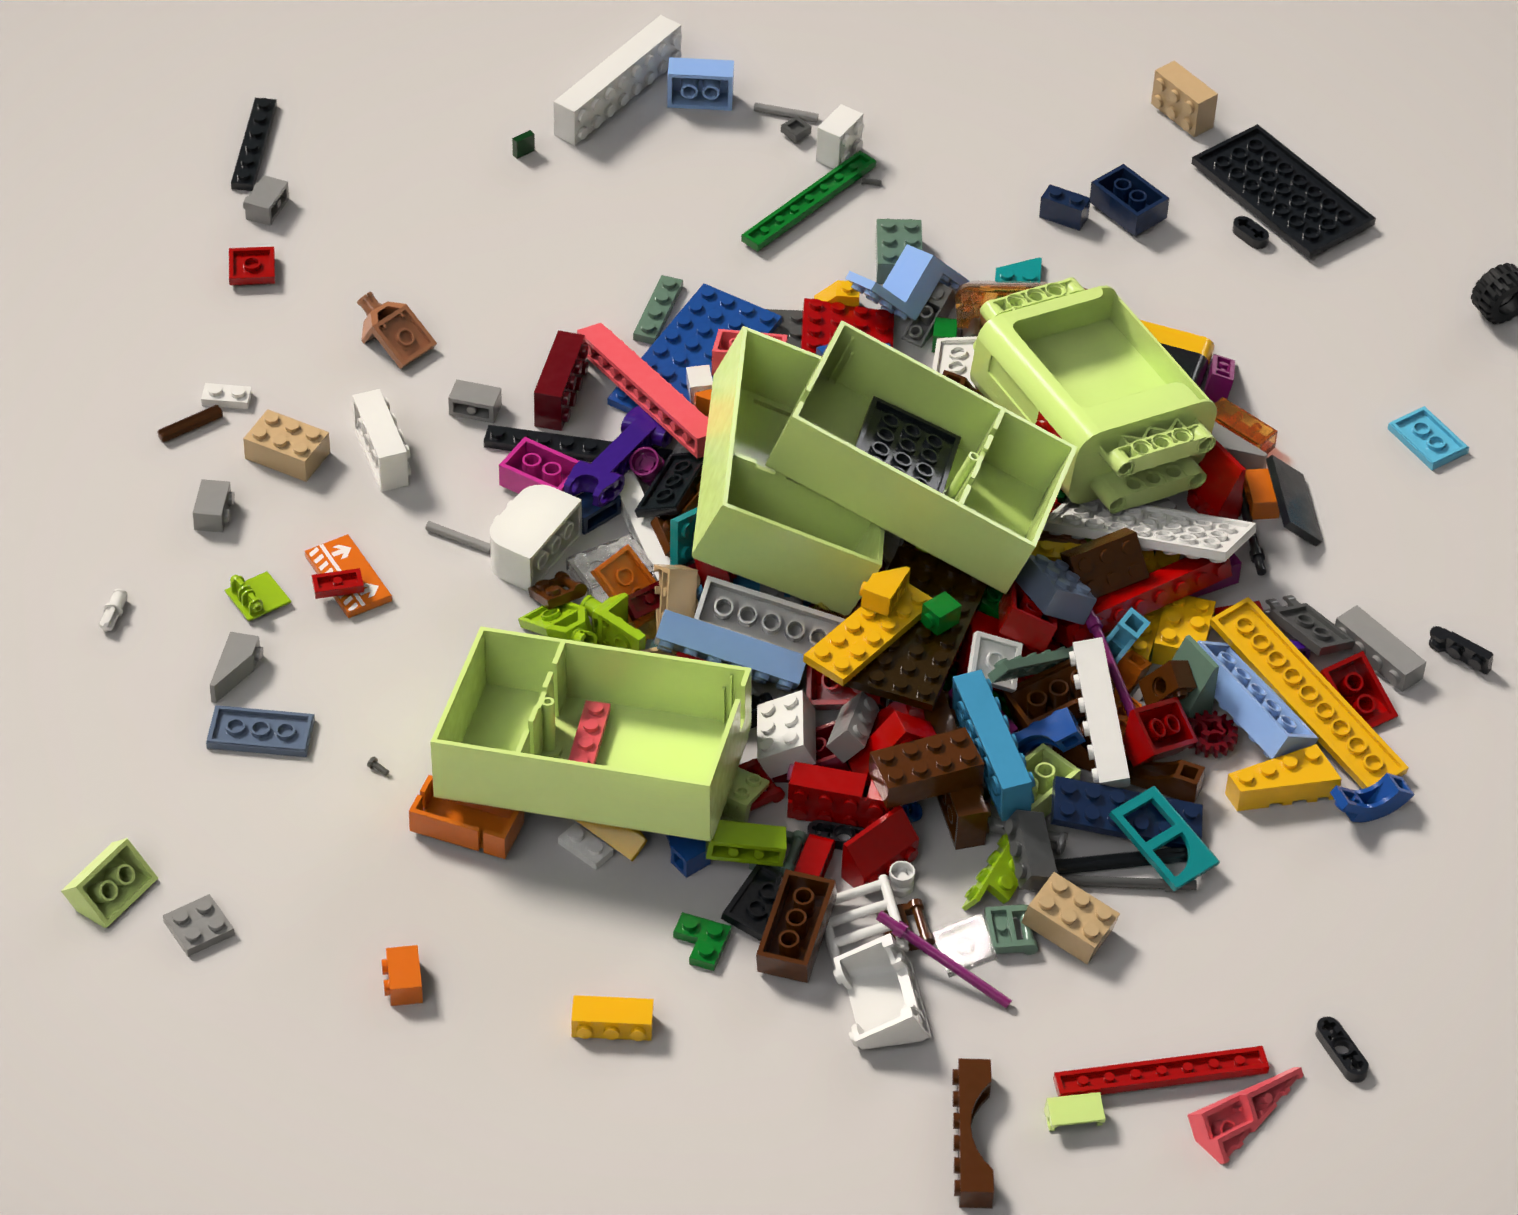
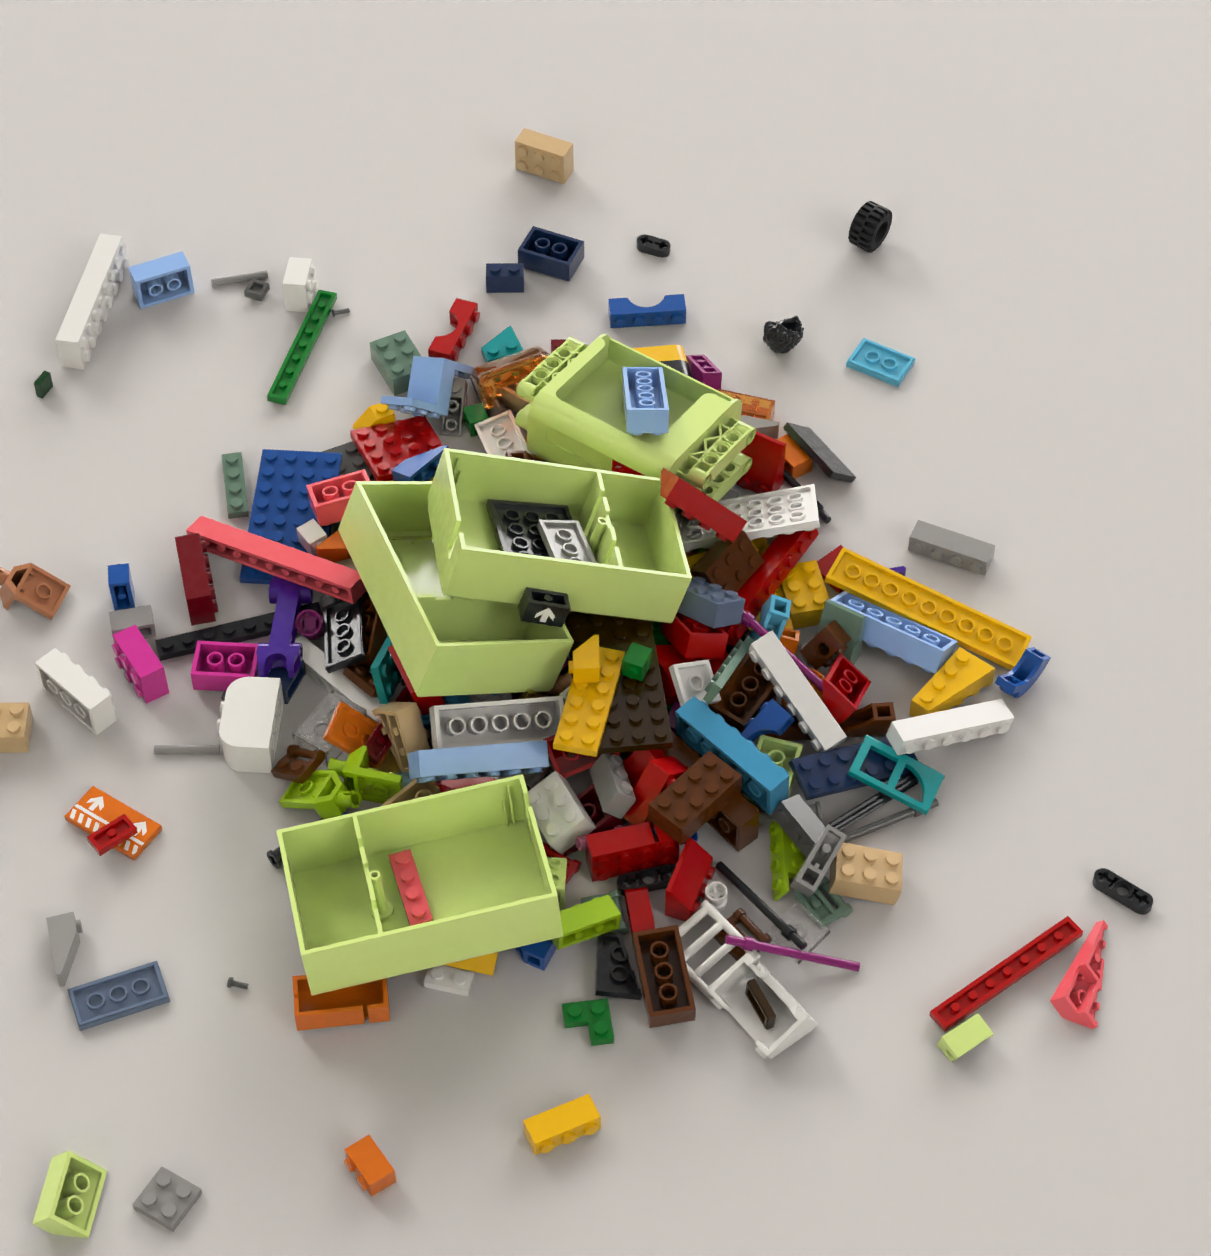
camera: 25 degrees left, 5 degrees up
(256, 595) = (45, 873): lime hinge -> none
(458, 439) = (140, 664): none -> dark pink brick
(482, 359) = (121, 586): none -> blue brick
(864, 517) = (544, 607): none -> black brick
(880, 993) = (760, 1004): none -> dark brown tile
(929, 463) = (565, 540): none -> light grey plate
(951, 936) = (787, 931): none -> black bar
(976, 1177) = (925, 1131): reddish brown arch -> none
(996, 231) = (463, 317): none -> red arch
(1020, 881) = (818, 861): none -> light grey slope
(1098, 487) = (700, 506): none -> red slope
(1107, 365) = (645, 400): none -> light blue brick
(1213, 734) = (876, 669): dark red gear -> none
(1222, 303) = (626, 314): none -> blue arch
(1253, 815) = (949, 727): none -> white brick
(1283, 191) = (658, 203): black plate -> none
(1308, 626) = (893, 551): dark grey tile -> none
(1331, 370) = (783, 334): none -> black hair
(1361, 689) = (960, 585): red slope -> none
(1461, 648) = (1009, 523): black hinge -> none

